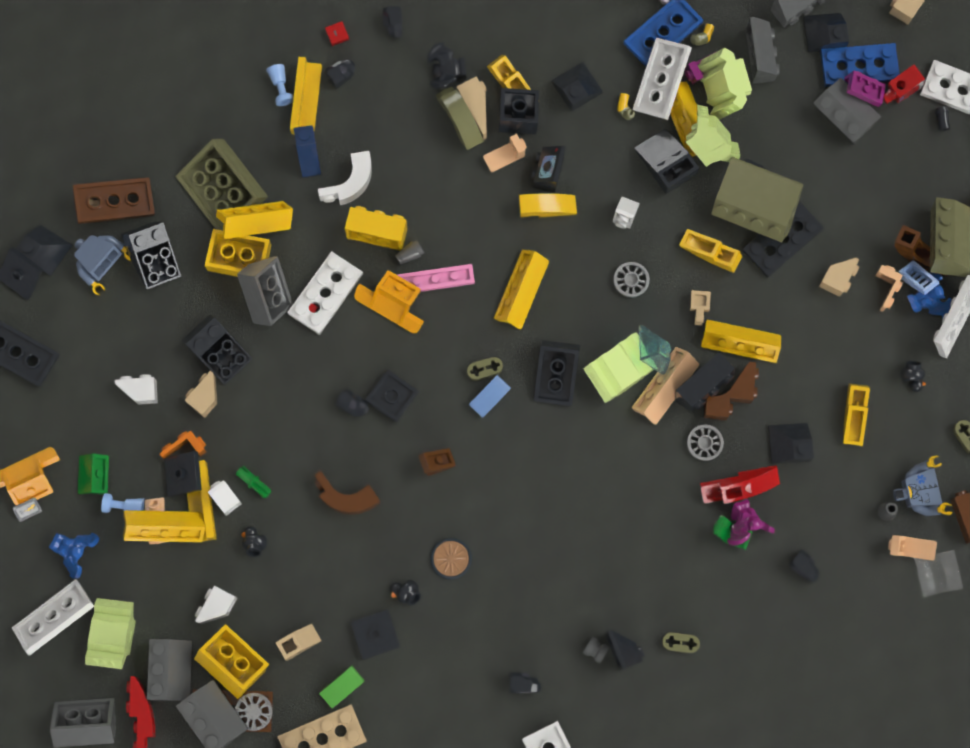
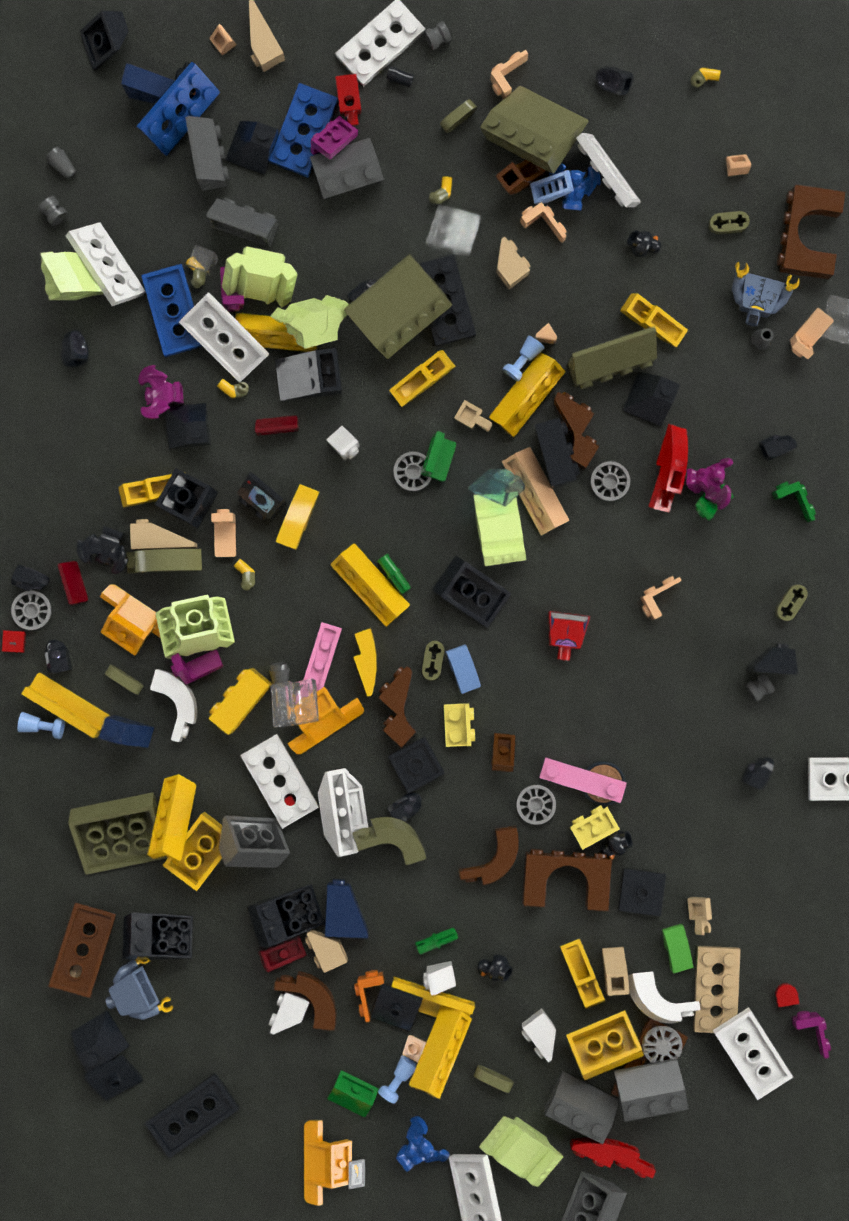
camera: 60 degrees left, 10 degrees up
(159, 584) = (493, 1078): none -> olive beam
(163, 408) = (316, 992): none -> reddish brown arch
(183, 362) = (282, 953): none -> dark red slope
(242, 393) = (343, 912): none -> dark blue slope
(282, 617) = (582, 973): none -> yellow slope
(284, 689) = (648, 1000): none -> white arch
(325, 353) = (341, 810): none -> white wedge
(328, 402) = (393, 832): none -> olive arch
(348, 131) = (124, 679): none -> olive beam
(356, 537) = (540, 865): none -> reddish brown arch
(368, 35) = (31, 610): none -> light grey wheel
(381, 691) = (700, 911): none -> tan plate
(384, 183) = (196, 668): none -> magenta bracket
(395, 271) = (294, 703): none -> clear slope
(398, 116) = (129, 621): none -> light orange plate
(406, 56) = (73, 582): none -> dark red slope
(406, 510) = (536, 804): none -> light grey wheel
(410, 565) = (594, 827): none -> light yellow bracket
(419, 165) = (194, 626): none -> yellowish green slope
(440, 352) = (394, 697): none -> reddish brown arch
(441, 414) = (457, 725): none -> light yellow bracket
(446, 539) = (583, 780): none -> bright pink plate
(458, 315) = (367, 660): none -> yellow slope
(480, 189) = (248, 575): none -> arm
(540, 303) = (394, 574): none -> green axle
(562, 465) = (566, 632): none -> red torso
(592, 52) = (160, 393): none -> magenta animal
(612, 155) = (276, 425): none -> dark red slope
(616, 526) = (650, 607): none -> light nougat bracket
(653, 293) = (438, 457): none -> green panel
(715, 35) = (203, 260): none -> clear panel
(773, 592) = (800, 493): none -> green bracket
(776, 324) = (529, 350): none -> light blue piece
(796, 331) = (546, 335): none -> light nougat slope
(806, 392) = (613, 358): none -> olive slope
(842, 218) = (453, 230): none -> clear slope
(867, 196) = (443, 193): none -> arm
(936, 178) = (458, 116): none -> olive beam

